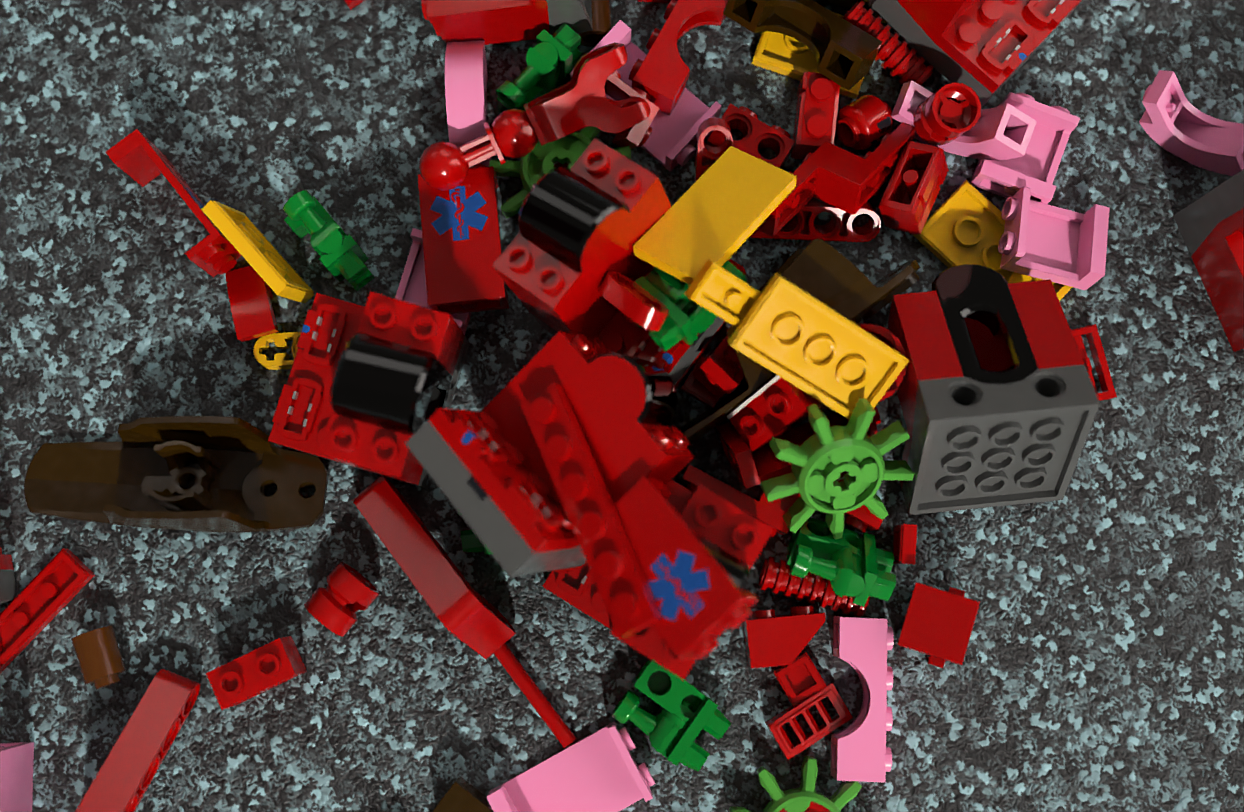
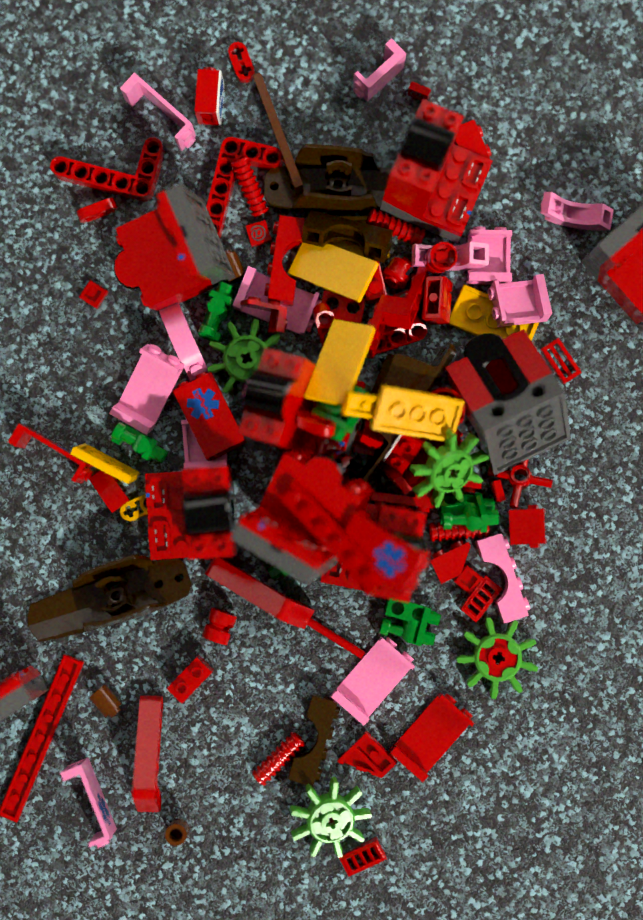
camera: 20 degrees left, 5 degrees up
(377, 158) = (148, 389): none -> bright pink panel
(545, 119) = (231, 339): red piece -> none
(760, 75) = (334, 270): none -> yellow tile
(945, 548) = (519, 485): none -> red bar

